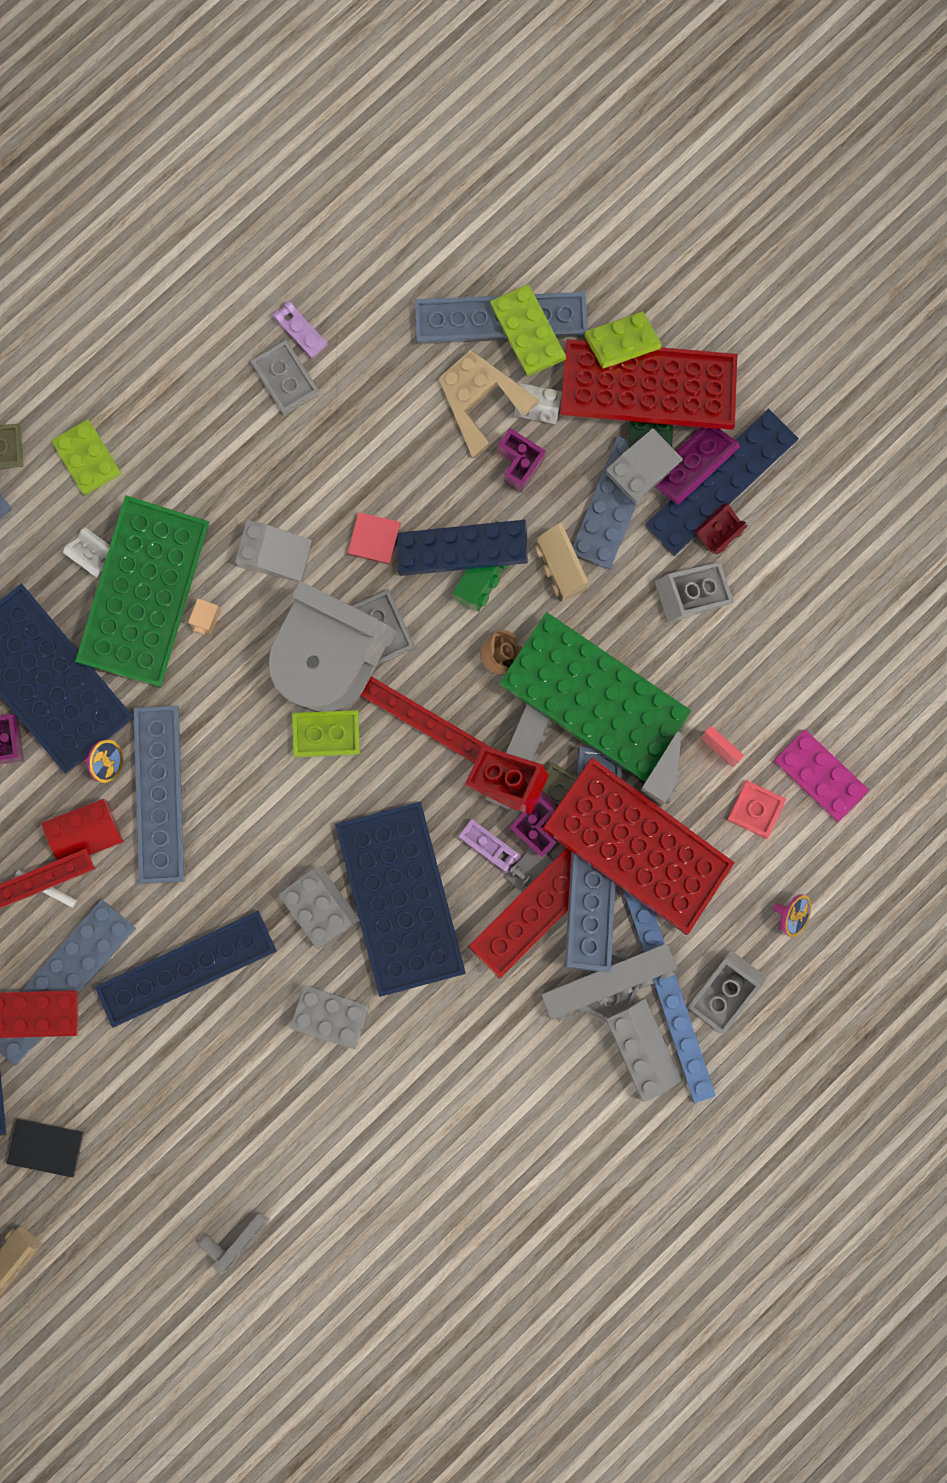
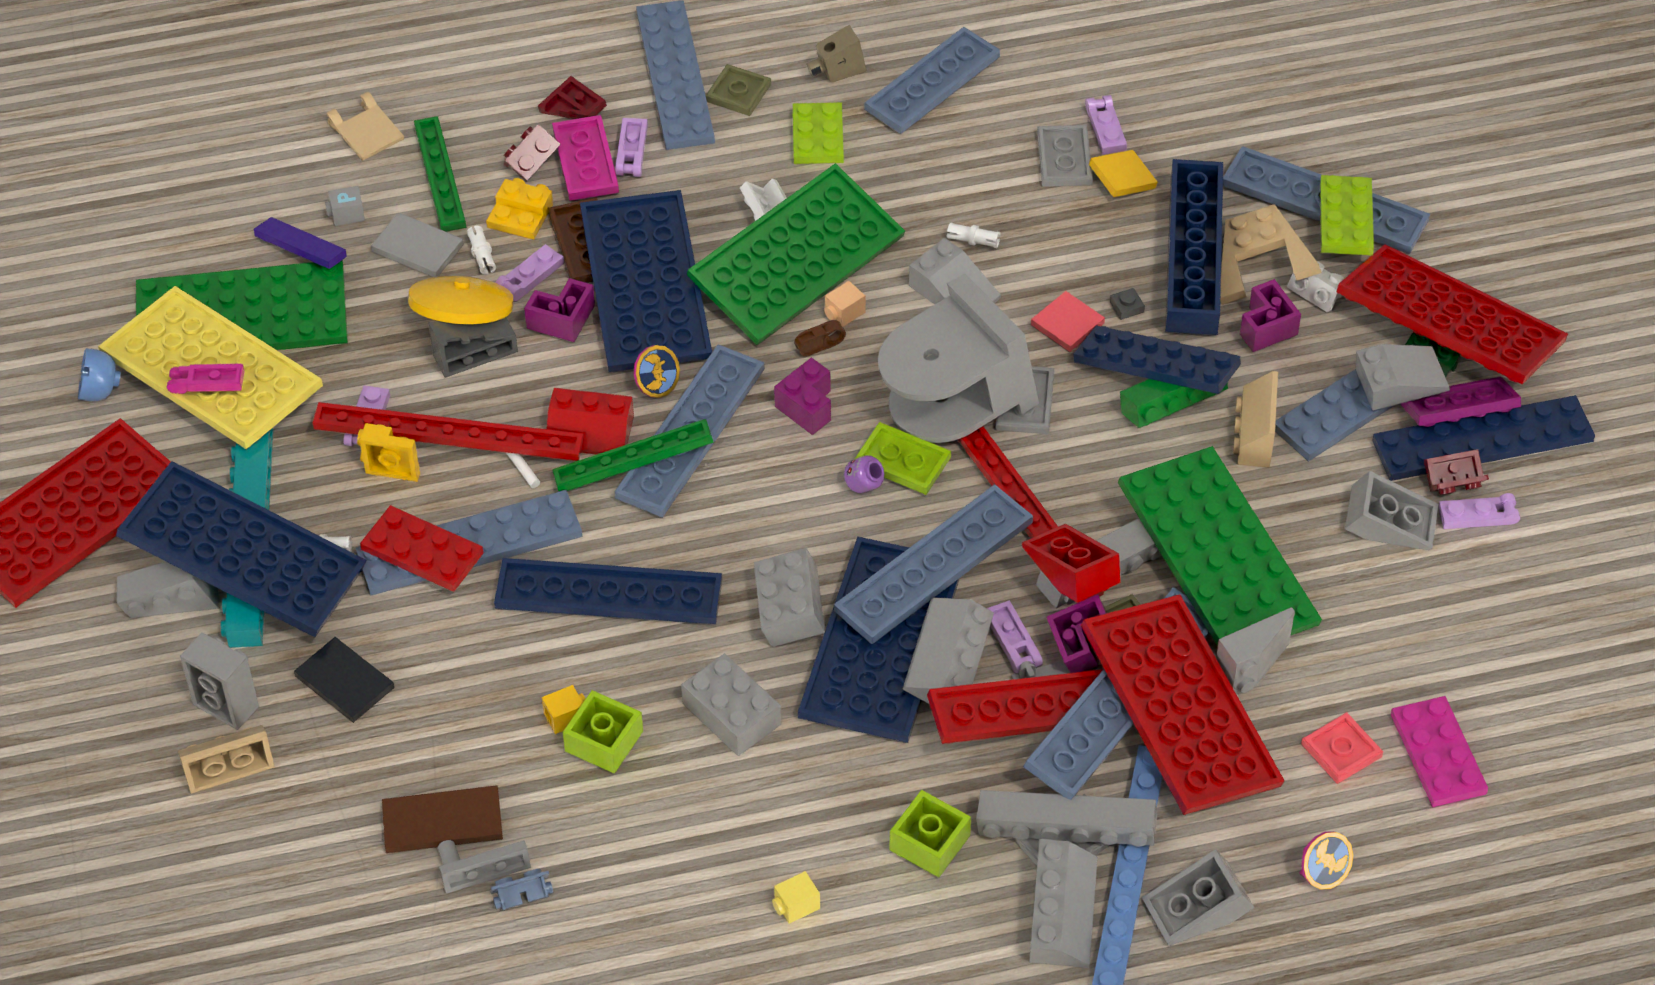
camera: 30 degrees right, 30 degrees down
(60, 378) = (838, 56): none -> dark tan torso
(133, 846) = (632, 455): none -> green tile
(144, 357) = (932, 80): none -> sand blue plate
(186, 1219) = (432, 818): none -> reddish brown tile
(204, 658) = (817, 338): none -> reddish brown piece
(217, 1086) = (561, 707): none -> yellow brick
(220, 720) = (804, 396): none -> magenta brick
(256, 1093) = (603, 731): none -> lime brick
(261, 495) = (973, 235): none -> white pin
(268, 1251) = (532, 884): none -> sand blue hinge
(309, 767) = (864, 474): none -> medium lavender head
(339, 373) = (1123, 173): none -> yellow tile
(404, 822) = (933, 564): none -> sand blue plate
(408, 497) = (1127, 303): none -> dark grey plate
(432, 420) = (1194, 247): none -> dark blue brick
(456, 891) = (948, 646): none -> light grey slope
(463, 1145) = (796, 897): none -> light yellow brick
(499, 651) = (1135, 457): medium nougat cylinder -> none
(526, 1046) = (930, 833): none -> lime brick
(622, 339) = (1446, 267): lime plate -> none
(722, 746) = (1336, 658): coral tile -> none
(750, 552) = (1479, 512): none -> lavender plate

